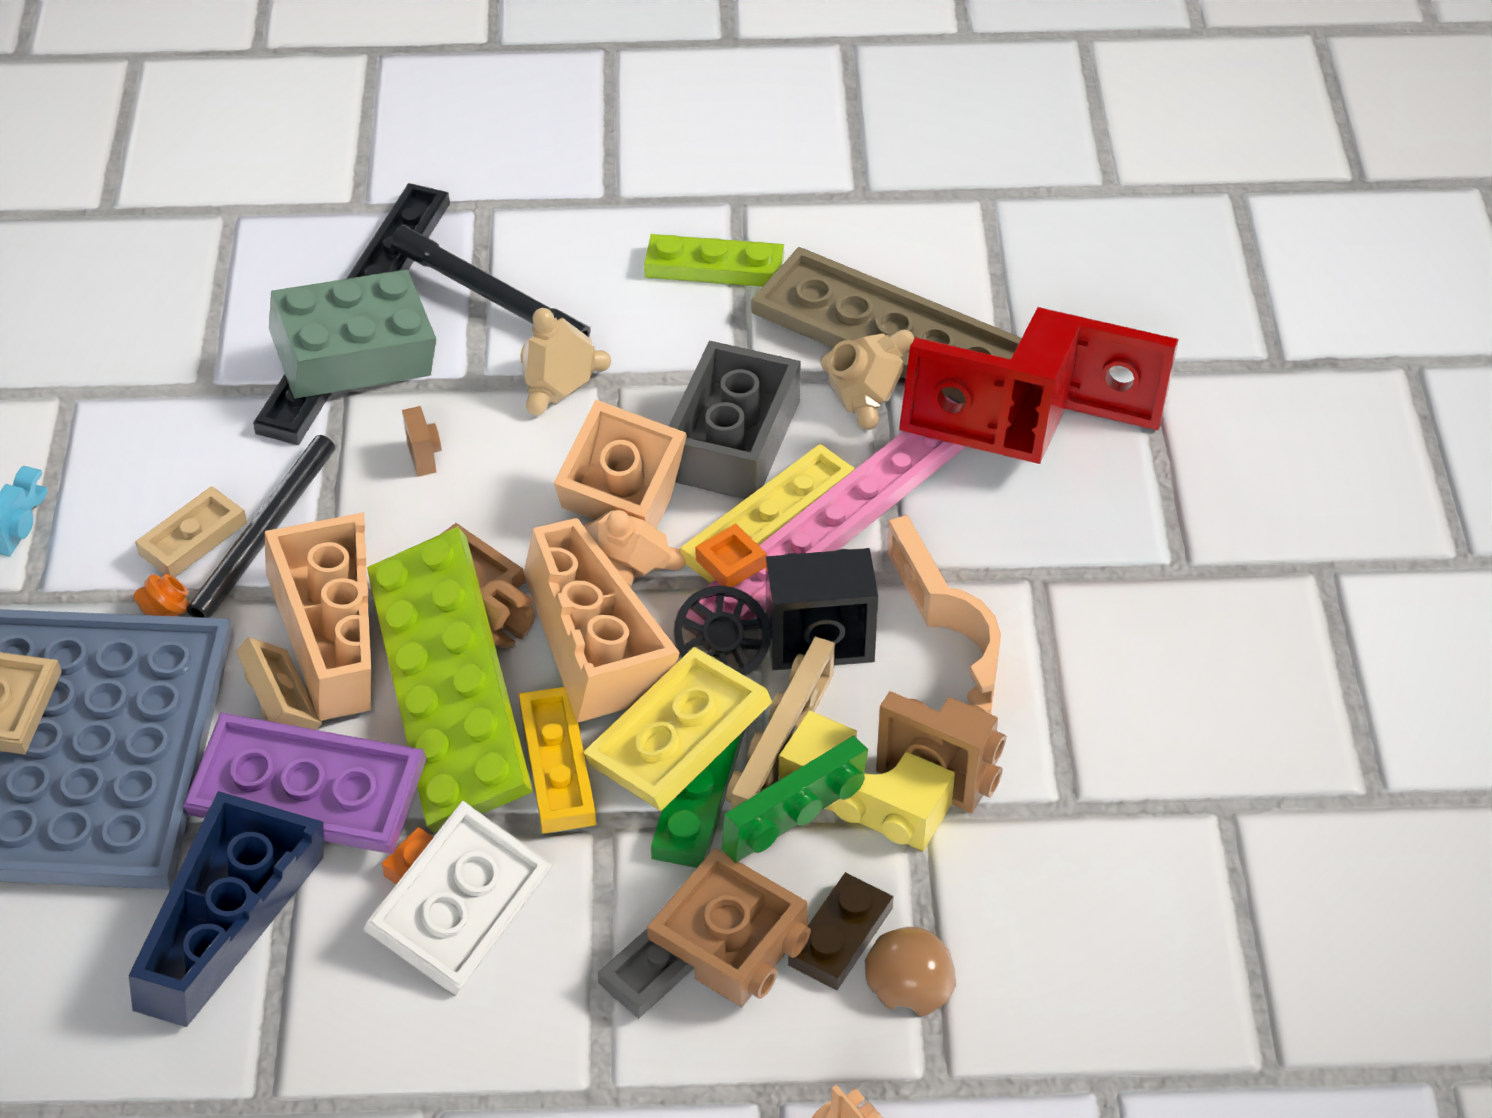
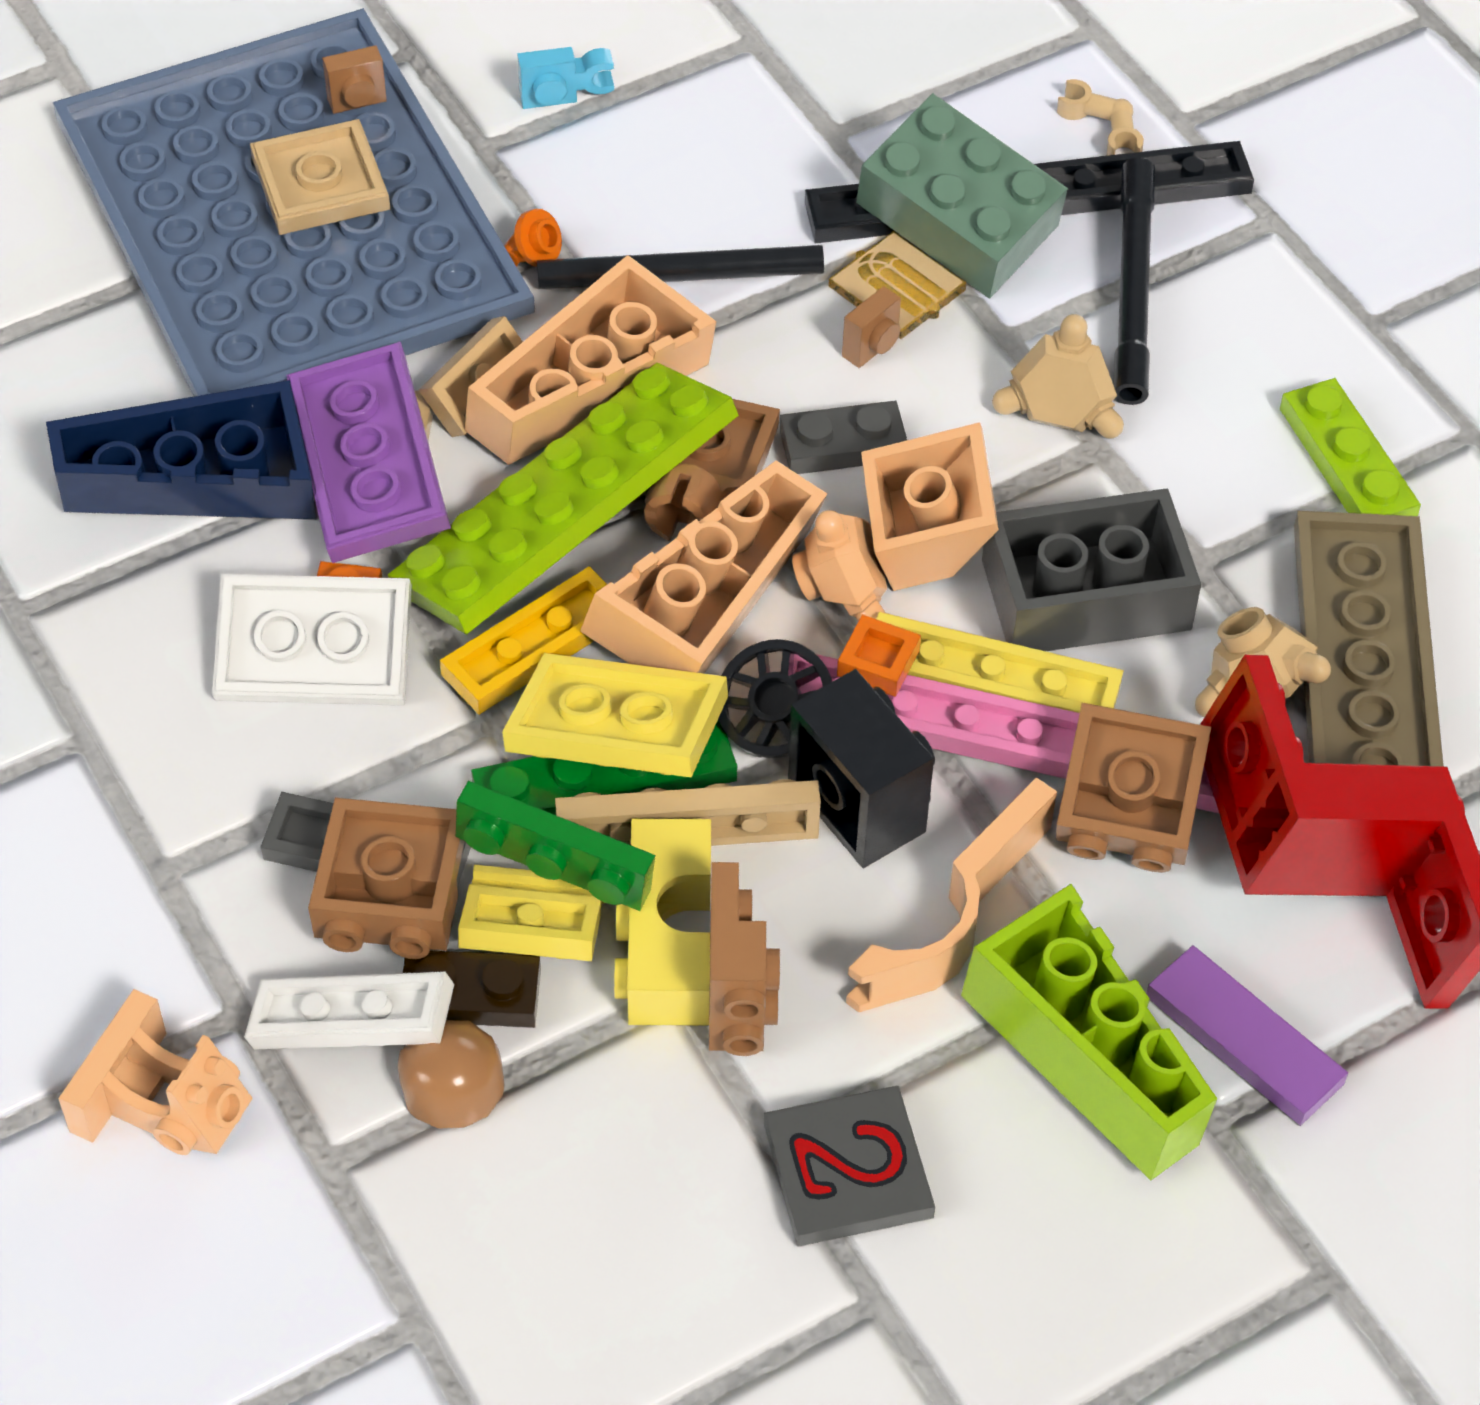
camera: 60 degrees right, 5 degrees up
(191, 532) = (629, 216): tan plate -> none
(324, 230) = (1080, 102): none -> tan arm
(373, 415) = (905, 271): none -> piece
(500, 503) = (838, 435): none -> dark grey plate
(812, 857) = (528, 915): none -> light yellow plate
(829, 1006) = (350, 1010): none -> white tile
(926, 476) = (1132, 787): none -> medium nougat plate
(1101, 587) = (1089, 1031): none -> lime wedge
(1115, 771) = (848, 1165): none -> dark grey tile
(1131, 521) = (1247, 1035): none -> medium lavender tile

